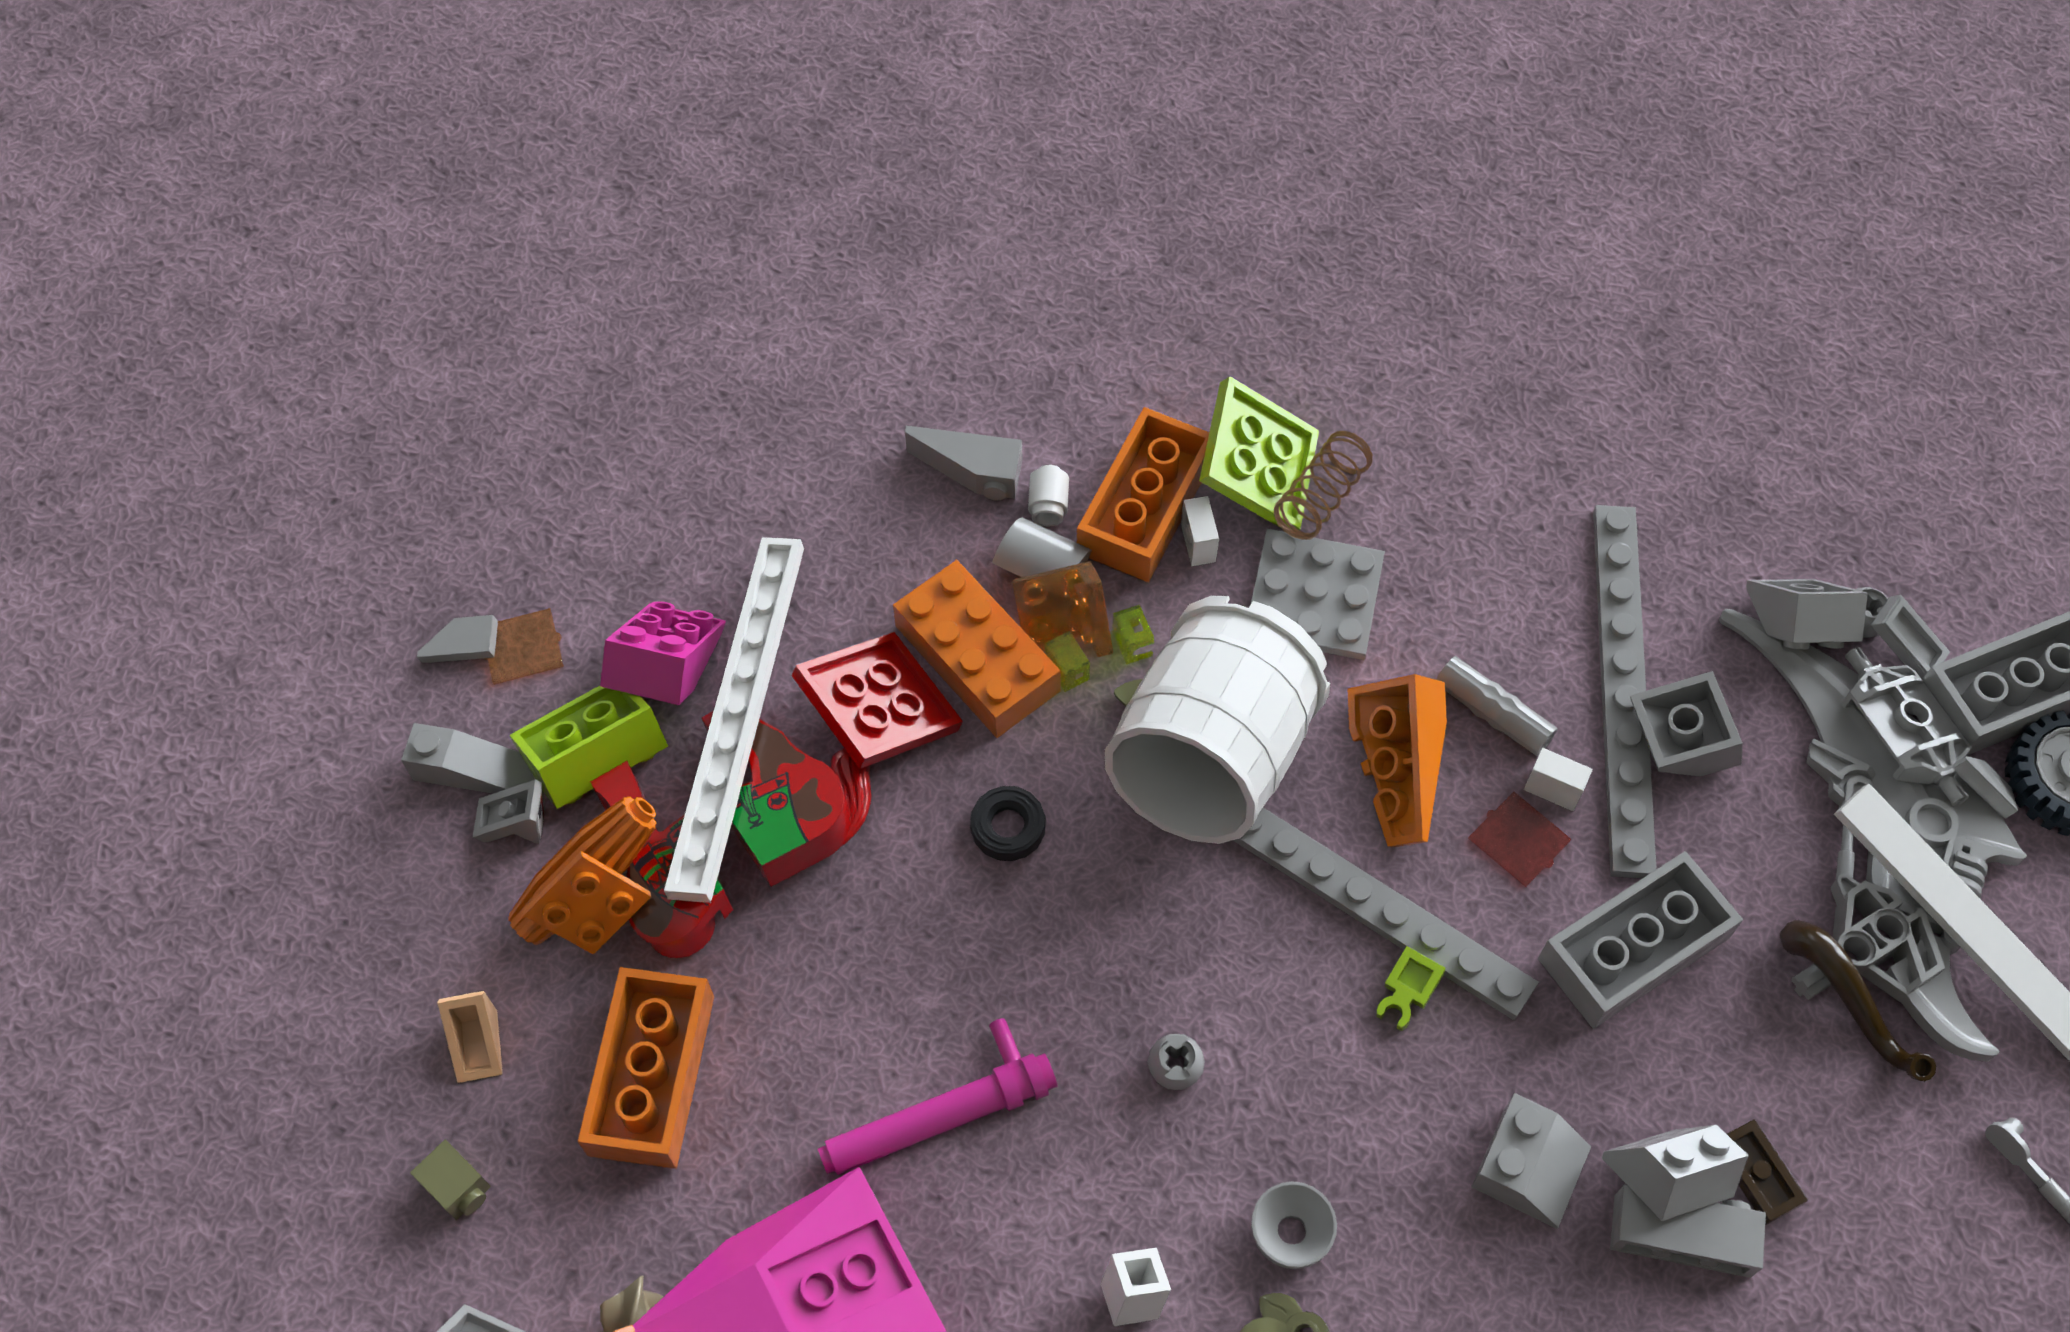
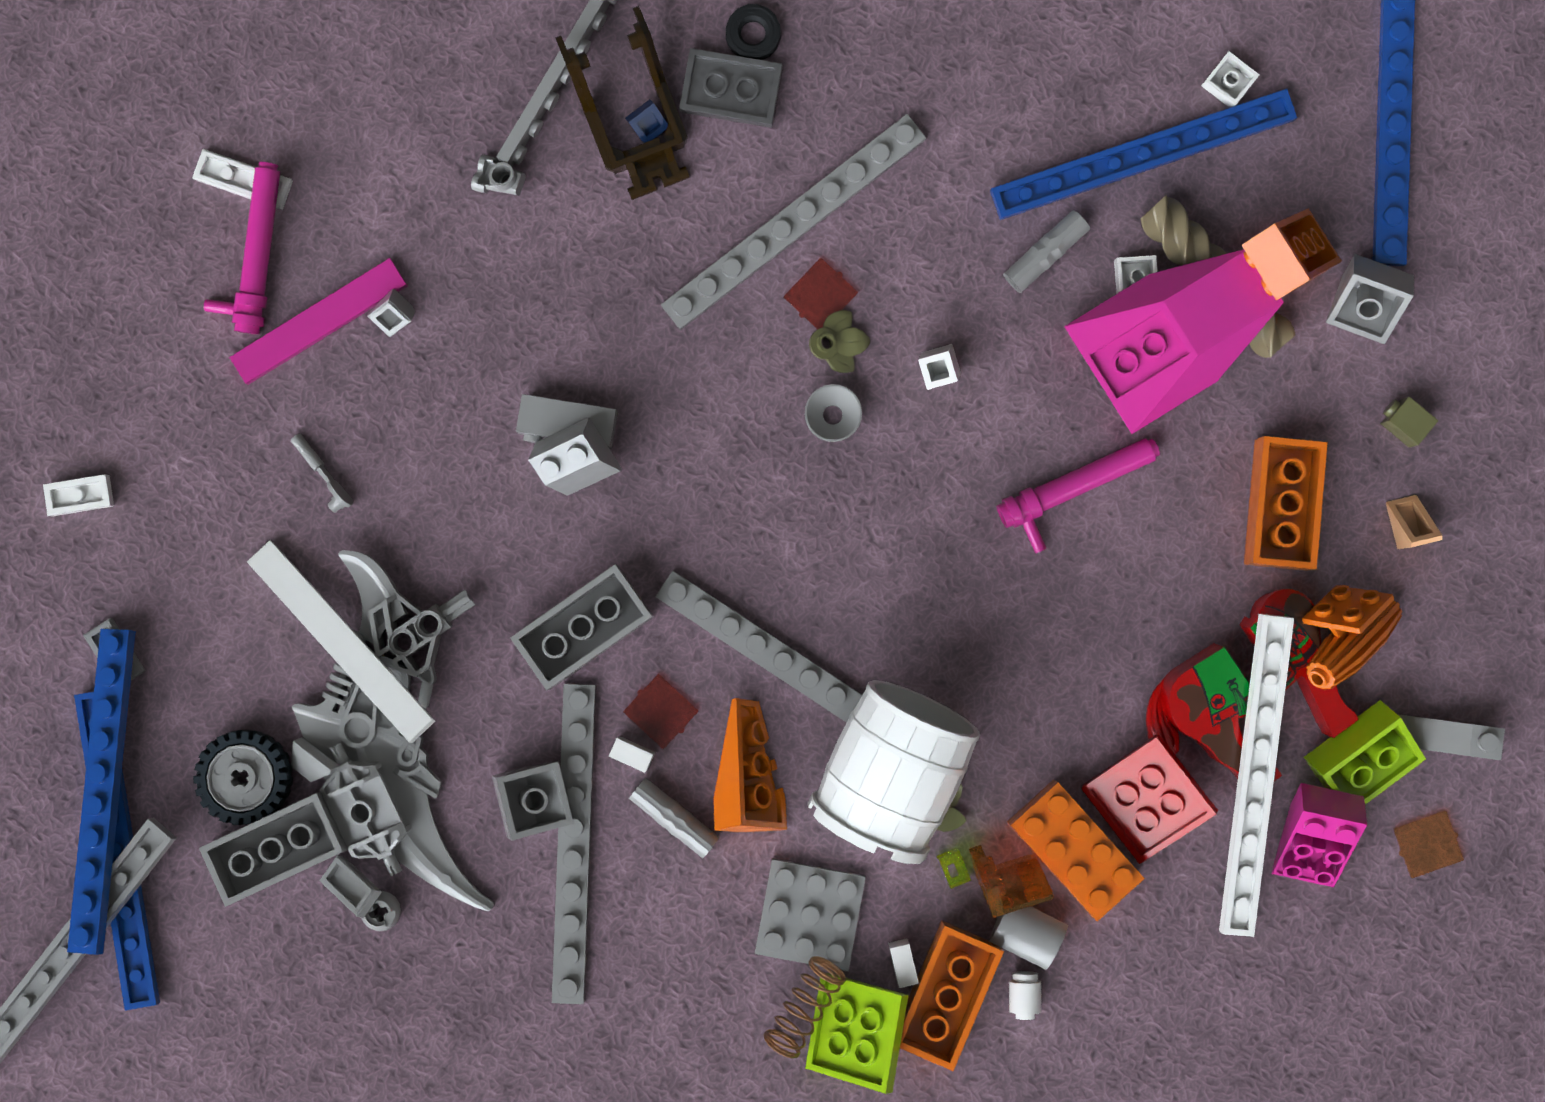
camera: 175 degrees right, 25 degrees up
(462, 640) = (1475, 845): light grey tile -> none
(510, 812) = (1413, 695): light grey slope -> none
(976, 461) = (1081, 1023): light grey slope -> none
(1003, 799) = (1060, 701): black tyre -> none
(1070, 659) = (1004, 841): clear neon green piece -> none
(1175, 1046) = (901, 526): light grey piece -> none
(1412, 982) = (745, 592): lime plate -> none
(1532, 1161) = (668, 465): light grey slope -> none
(1765, 1176) = (513, 466): dark brown plate -> none
(1809, 611) = (428, 907): light grey slope -> none
(1830, 958) = (454, 617): dark brown animal -> none

